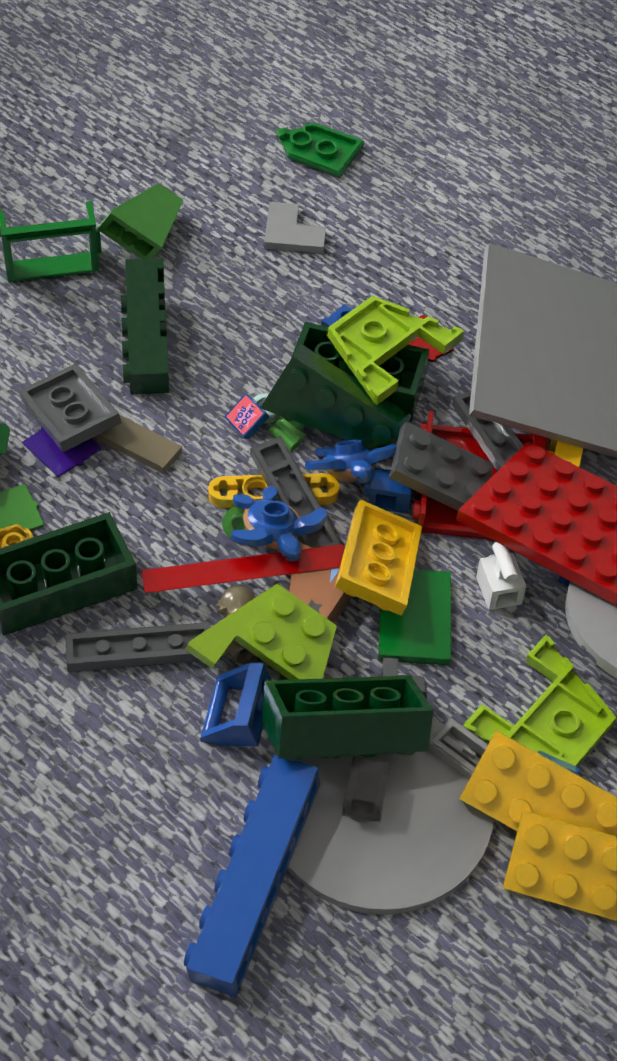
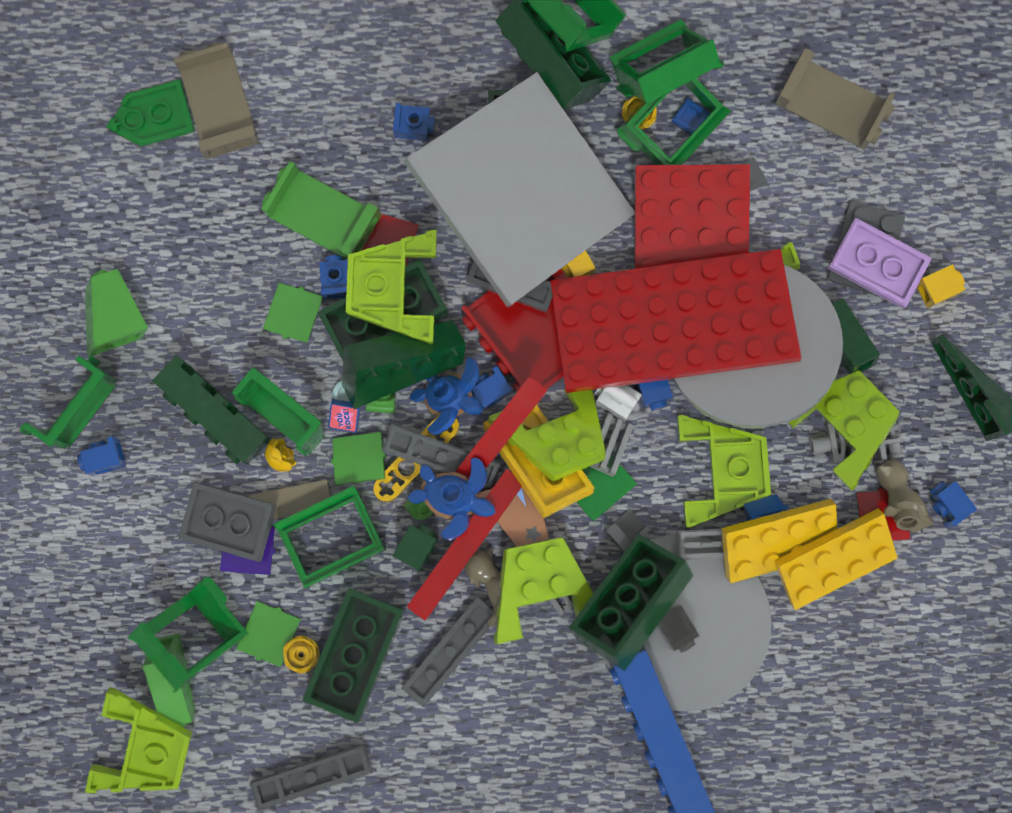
camera: 40 degrees left, 30 degrees up
(28, 300) = (102, 457): none -> blue brick
(130, 508) = (316, 511): none -> green piece
(163, 399) = (279, 456): none -> yellow plate
(199, 360) = (280, 410): none -> green piece
(200, 532) = (416, 546): none -> dark green brick
(222, 453) = (358, 458): none -> bright green piece
(247, 725) = (560, 633): blue tile -> none
(280, 328) = (293, 312): none -> bright green piece
(285, 233) = (214, 225): light grey tile -> none
(374, 269) = (320, 212): none -> bright green panel
(374, 499) = (504, 425): none -> red sticker
(379, 168) = (217, 100): none -> dark tan panel
(413, 560) = (565, 442): none -> lime wing
(437, 467) = (513, 352): dark grey plate -> none
(453, 595) = (618, 425): none -> light grey tile
(543, 597) = (654, 394): none -> blue brick

